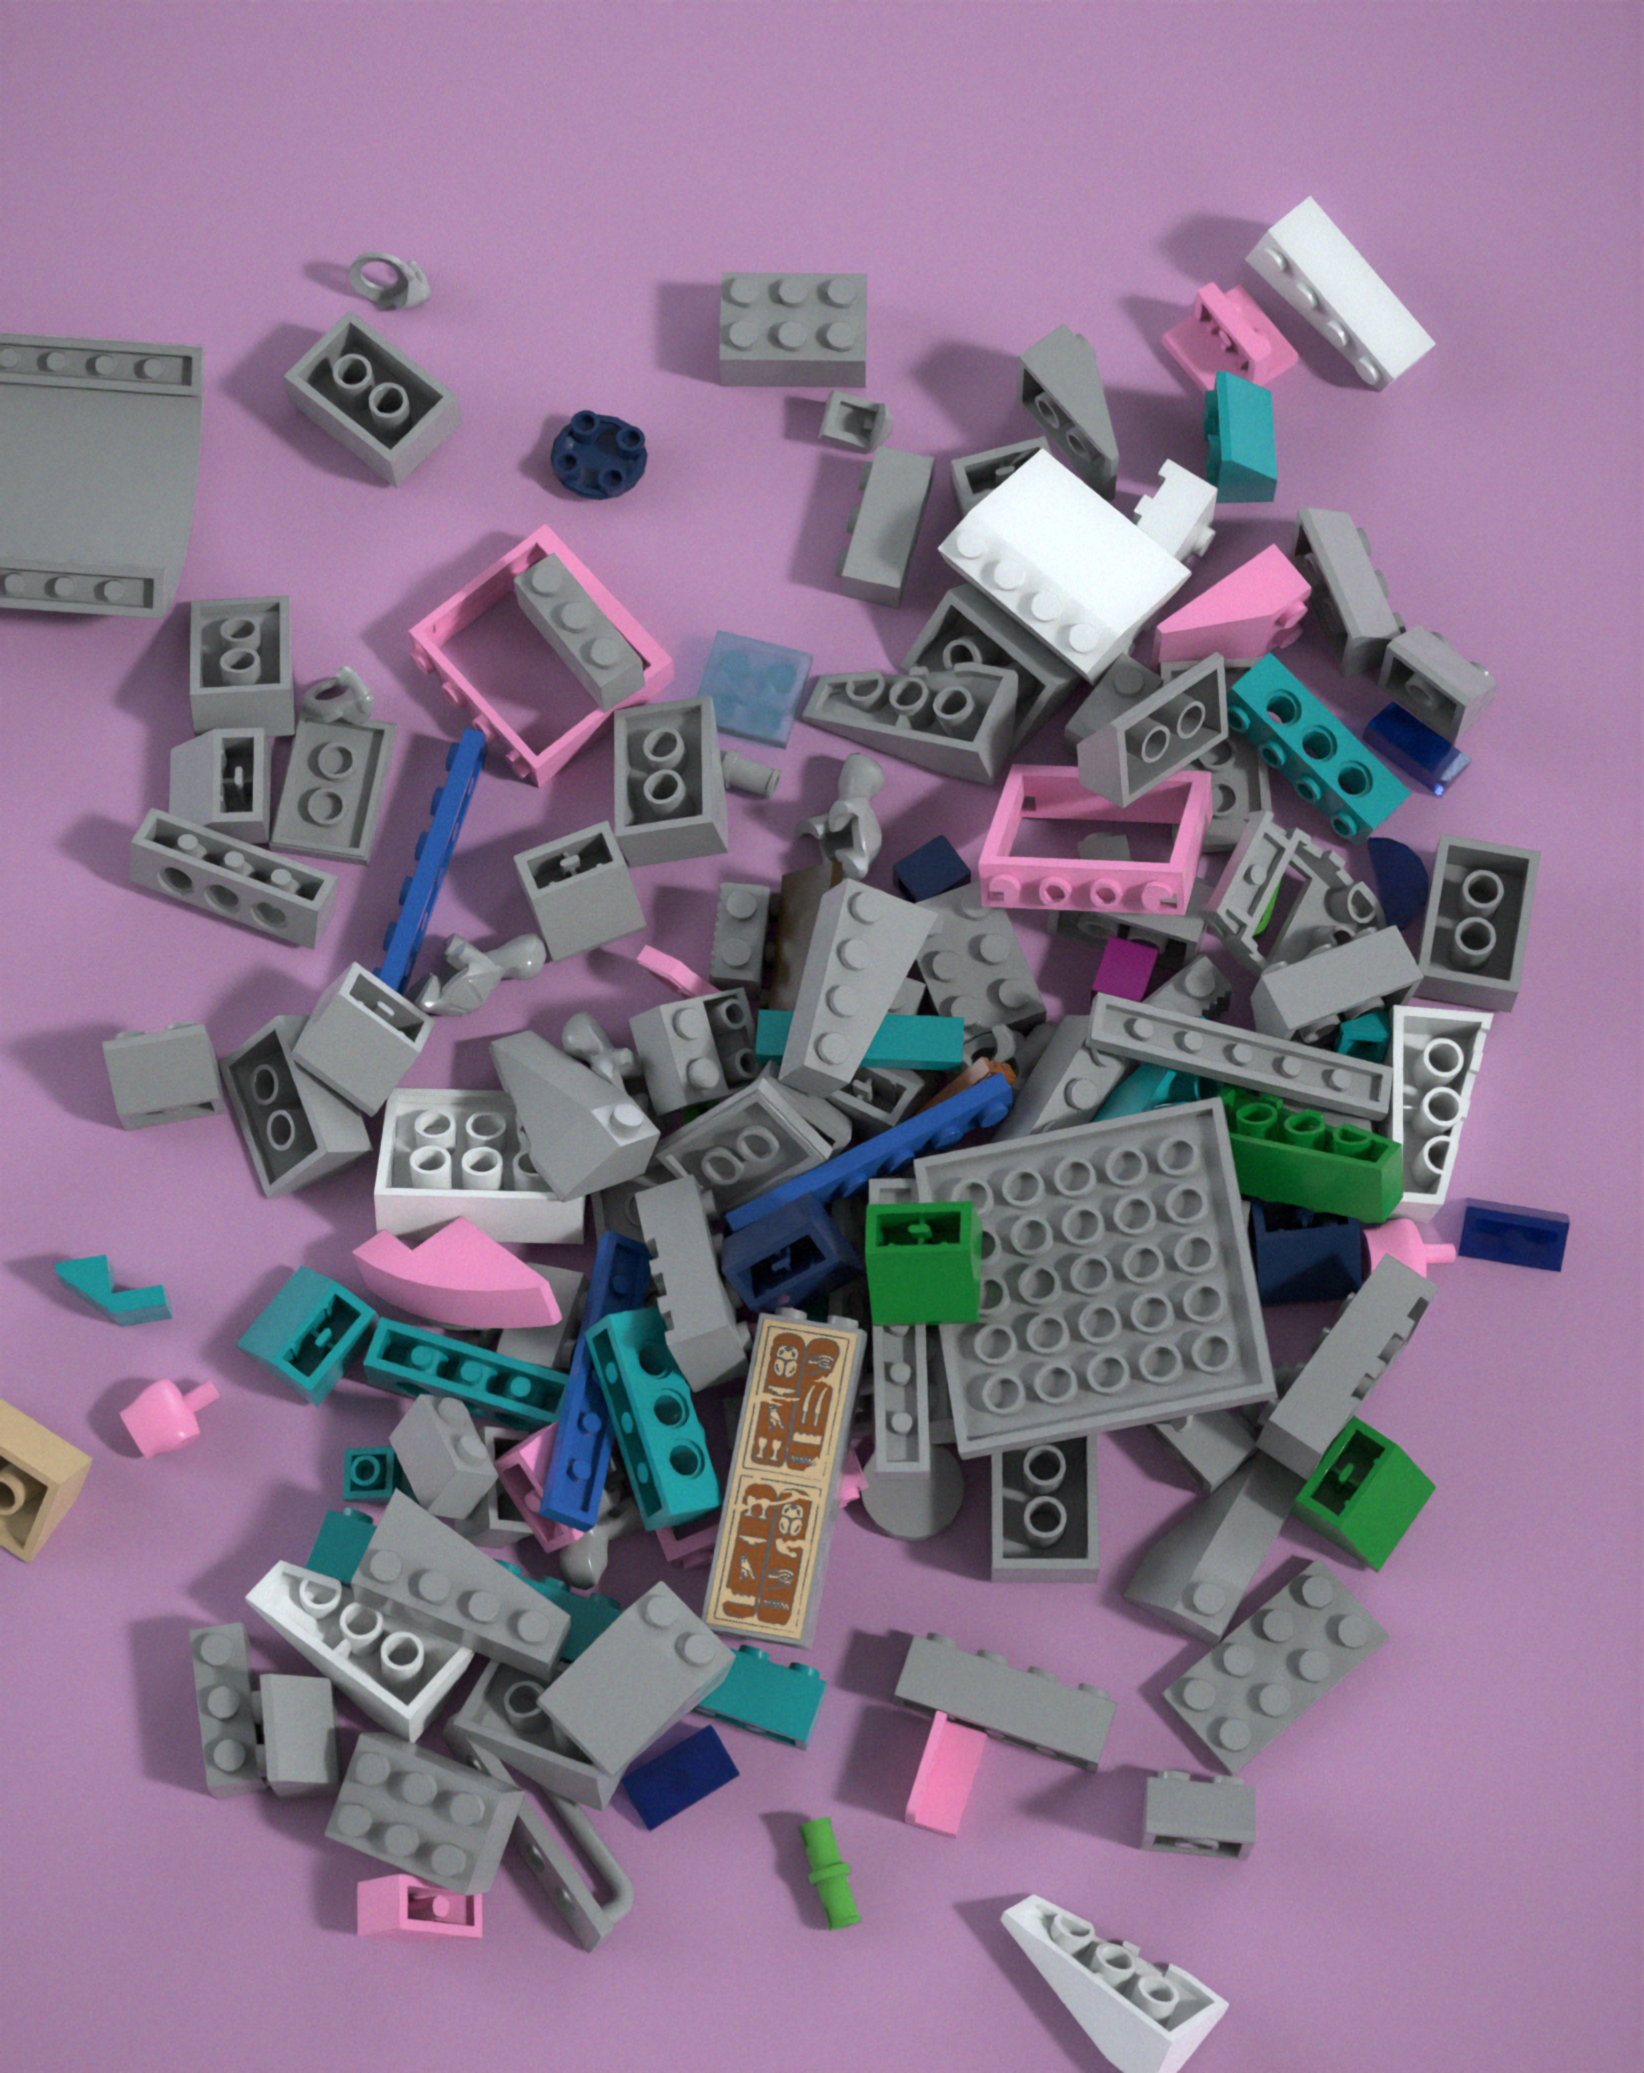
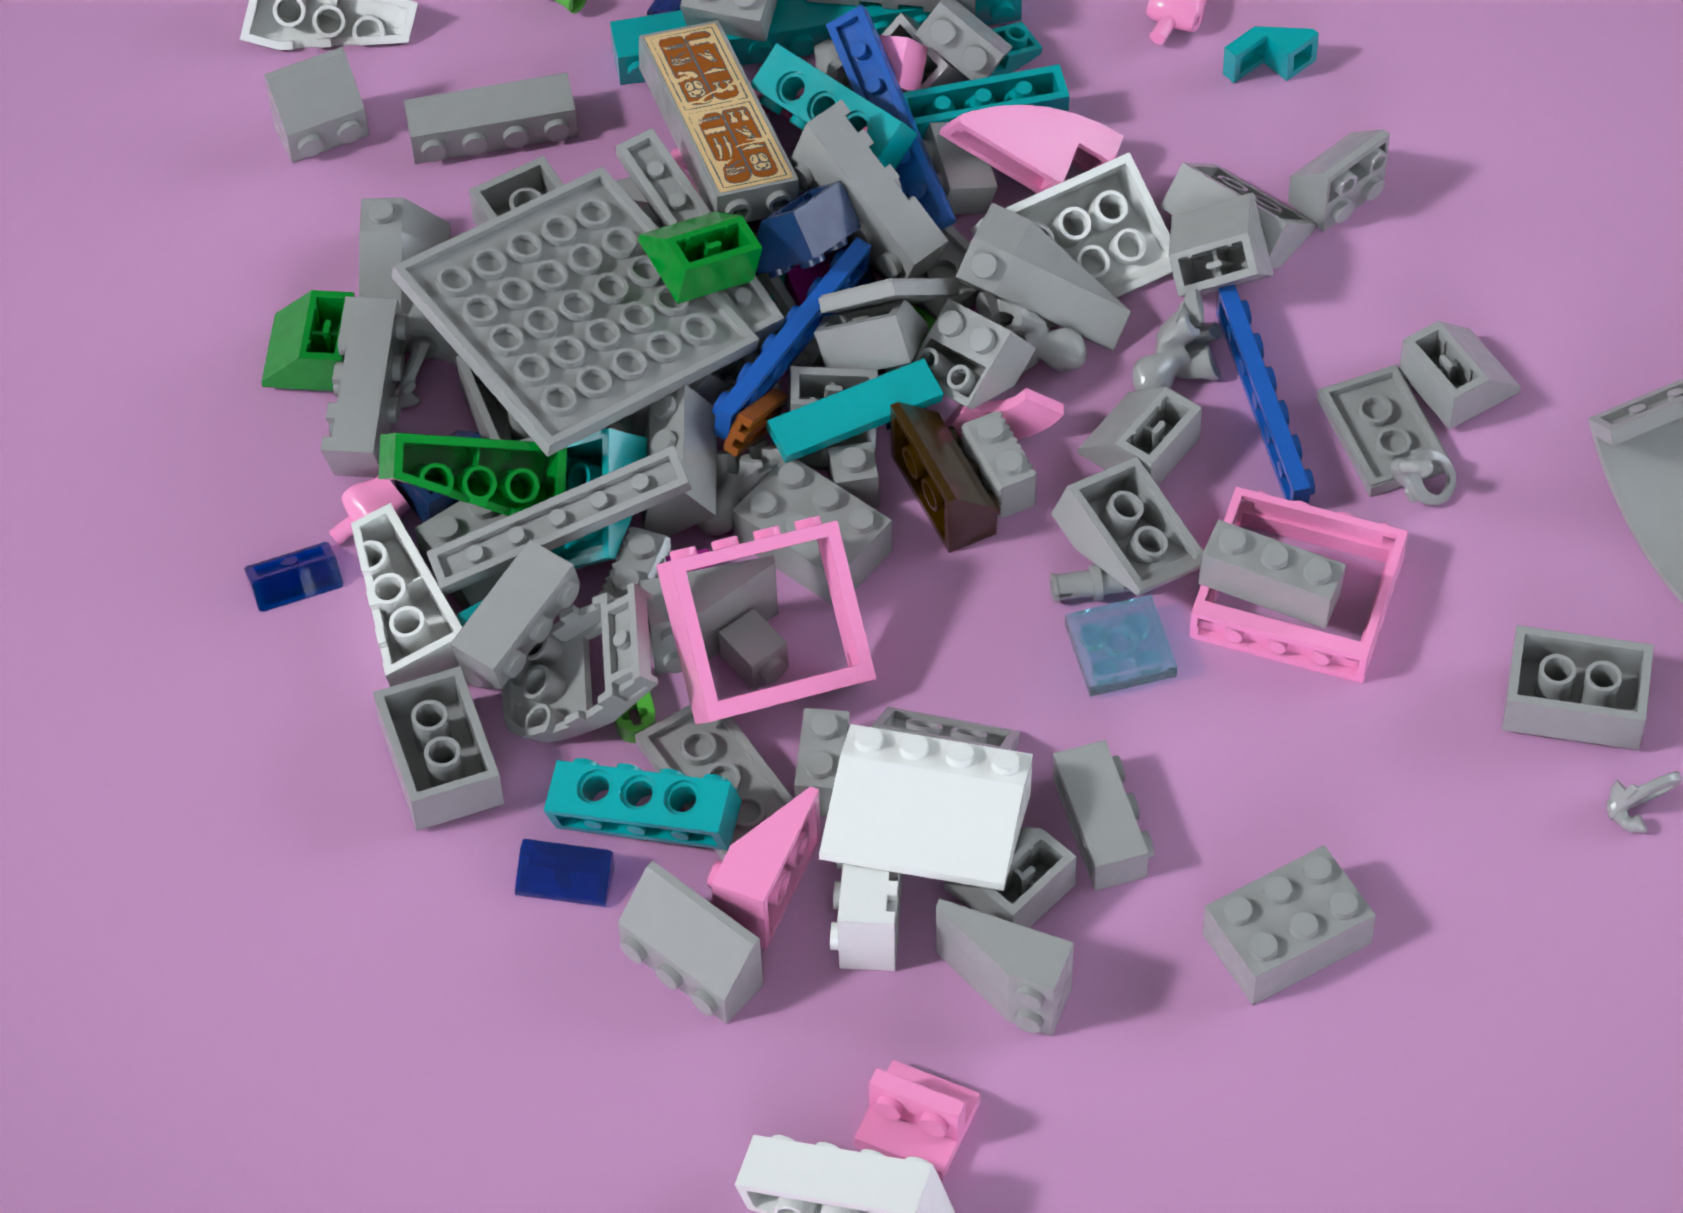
camera: 150 degrees right, 15 degrees down
(232, 878) = (1396, 313): light grey brick -> none
(242, 665) = (1518, 463): light grey slope -> none
(310, 1334) = (1118, 85): teal slope -> none
(599, 456) = (1371, 755): dark blue dish -> none
(850, 828) = (974, 582): light grey animal -> none
(850, 978) = (880, 413): light grey wedge -> none
(855, 422) = (1184, 884): light grey plate -> none
(930, 871) = (886, 574): dark blue panel -> none
(938, 719) = (972, 683): light grey wedge -> none
(945, 1777) = (505, 56): bright pink panel -> none
(1157, 735) = (771, 713): light grey slope -> none
(1239, 440) = (853, 1018): teal slope -> none
(1275, 1667) = (314, 231): light grey plate -> none
(1399, 880) = (520, 767): clear blue tile -> none
(1436, 682) = (572, 910): light grey slope -> none

